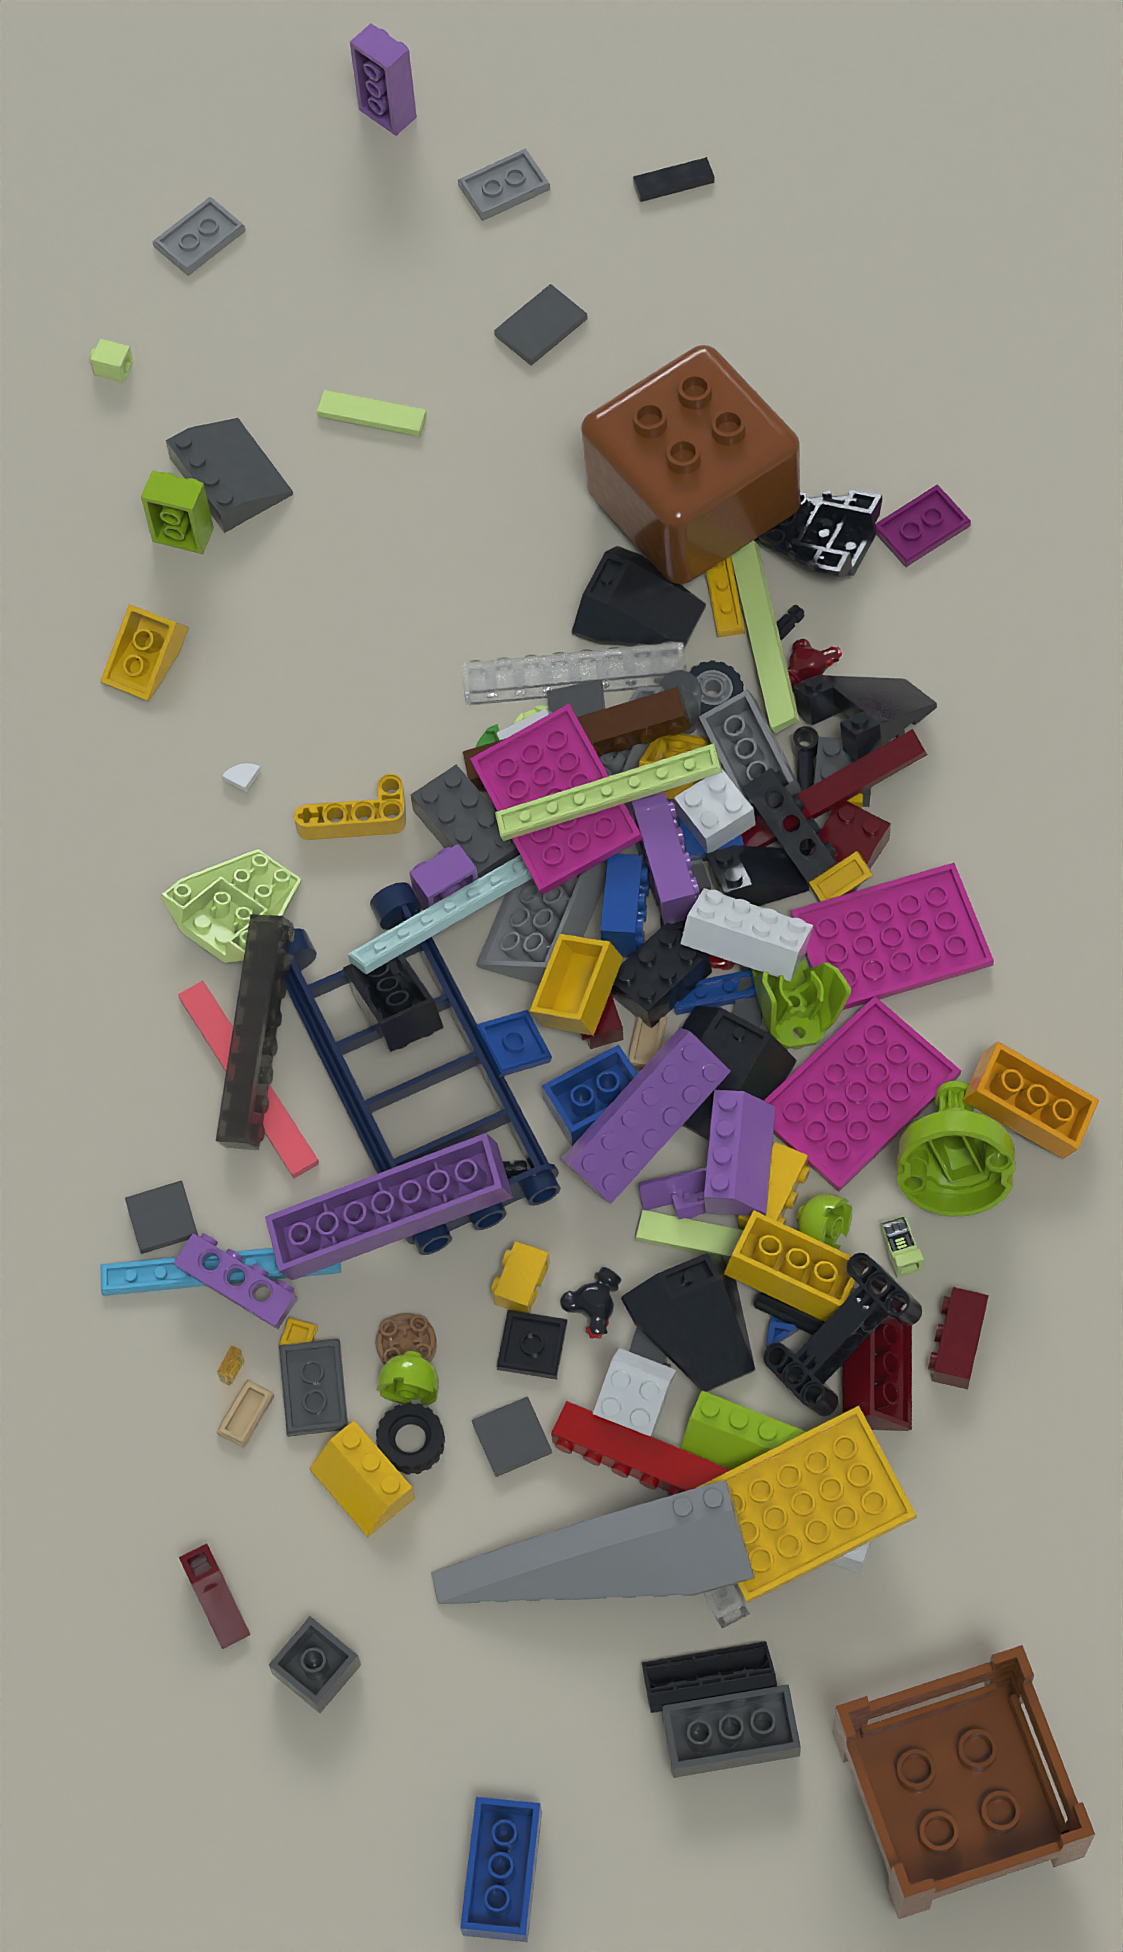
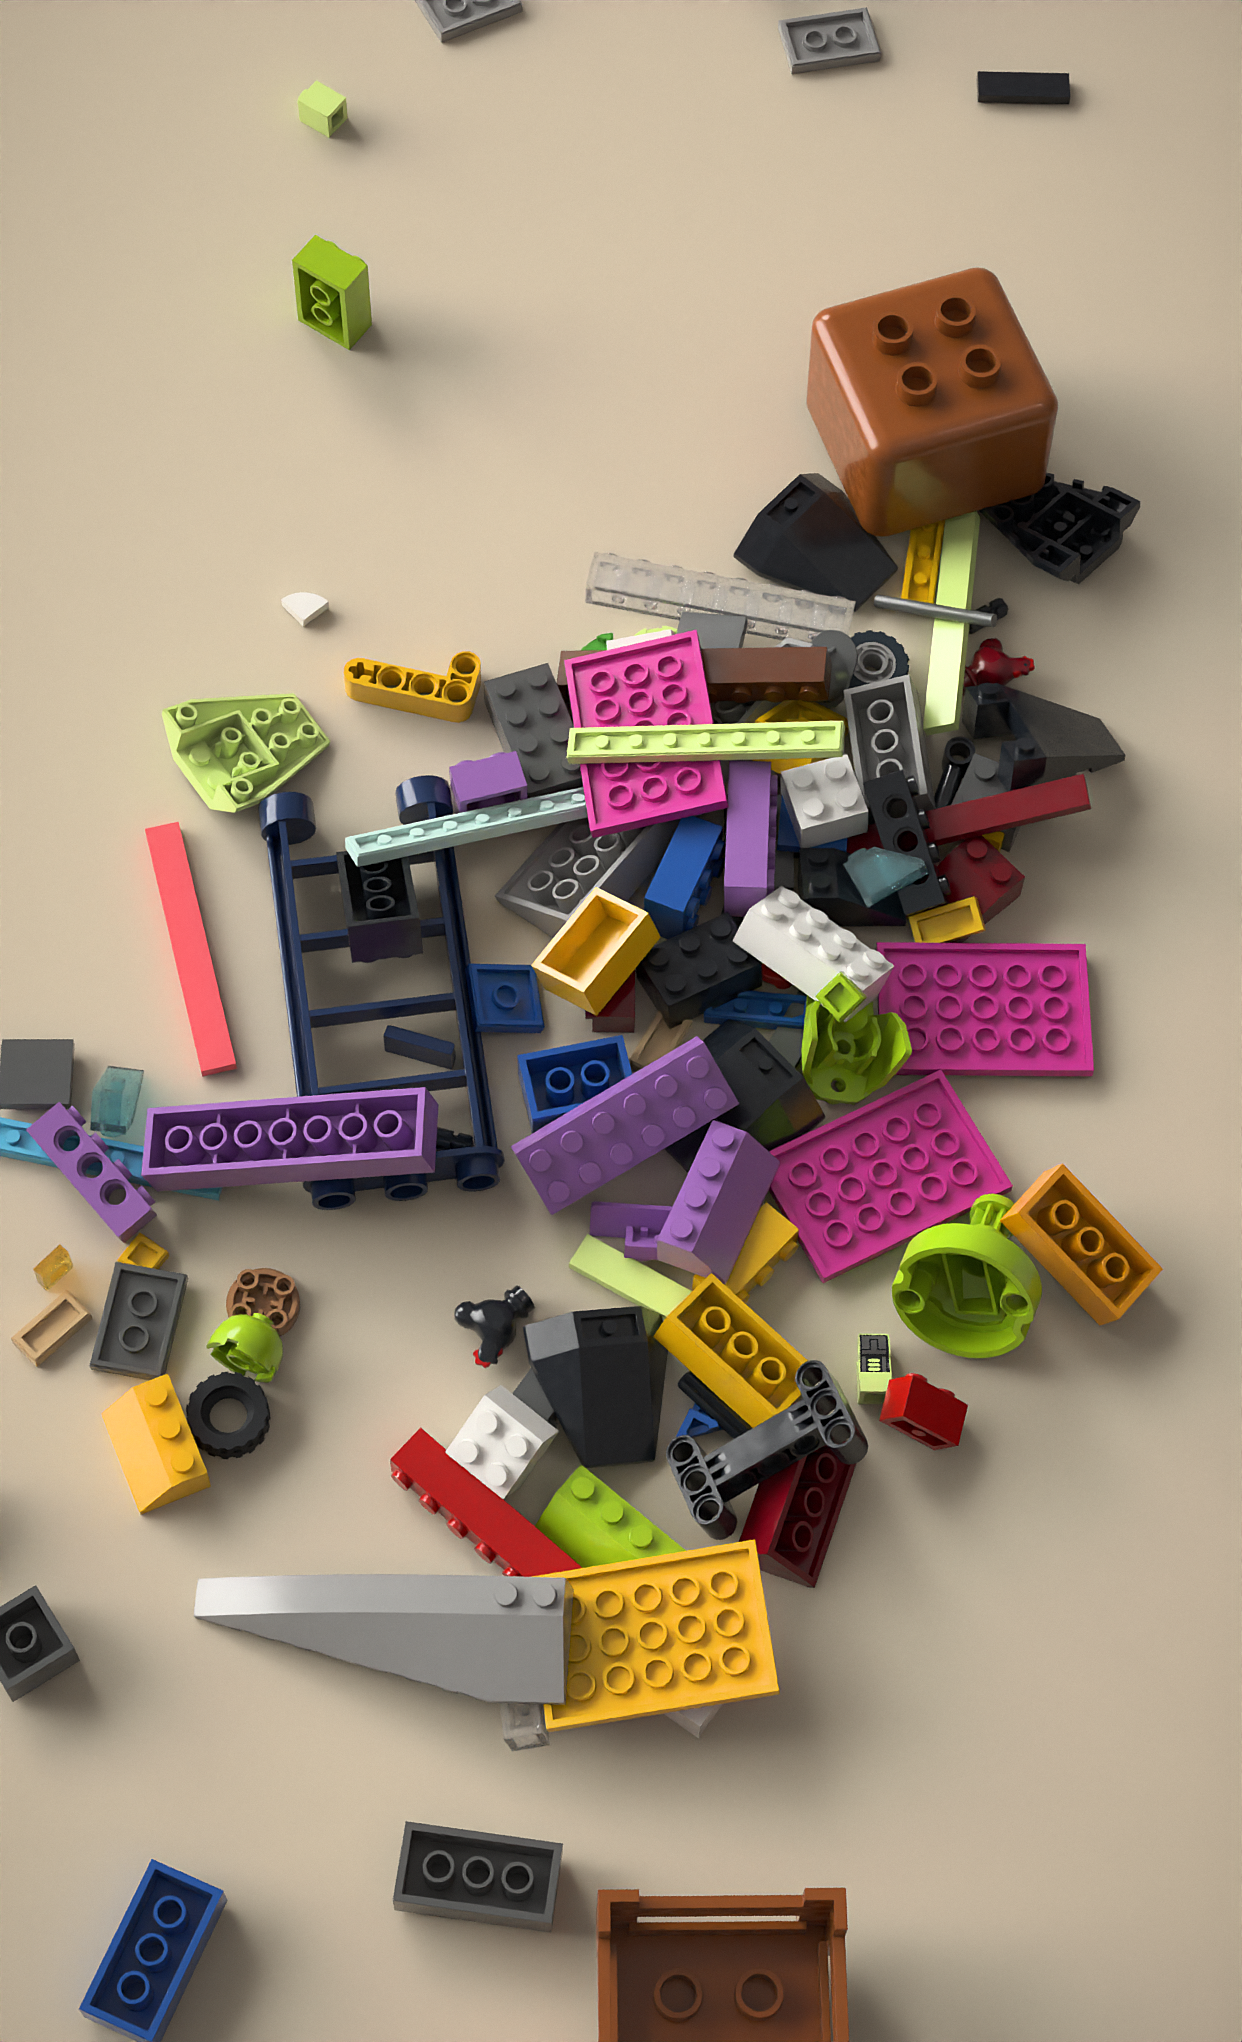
camera: 10 degrees right, 0 degrees up
(143, 652) = (242, 437): yellow slope -> none
(233, 469) = (409, 266): dark grey slope -> none
(233, 1218) = (115, 1100): none -> clear light blue slope
(255, 1032) = (212, 896): clear smoke brick -> none
(371, 413) = (592, 248): yellowish green tile -> none
(459, 1102) = (419, 1047): none -> dark blue tile
(511, 1436) = (346, 1449): dark grey tile -> none
(521, 1274) = (424, 1261): yellow piece -> none
(532, 1344) = (406, 1350): black tile -> none
(540, 324) = (817, 205): dark grey tile -> none
(708, 1674) = (475, 1801): black piece -> none
(749, 630) = (935, 610): none -> dark grey bar
(780, 854) = (882, 872): none -> clear light blue slope
(782, 962) = (841, 996): none -> lime tile
(825, 1218) = (795, 1310): lime cylinder -> none
(921, 525) = (1177, 551): magenta tile -> none
(951, 1266) = (923, 1411): none -> red brick
(958, 1337) = (905, 1496): dark red brick -> none

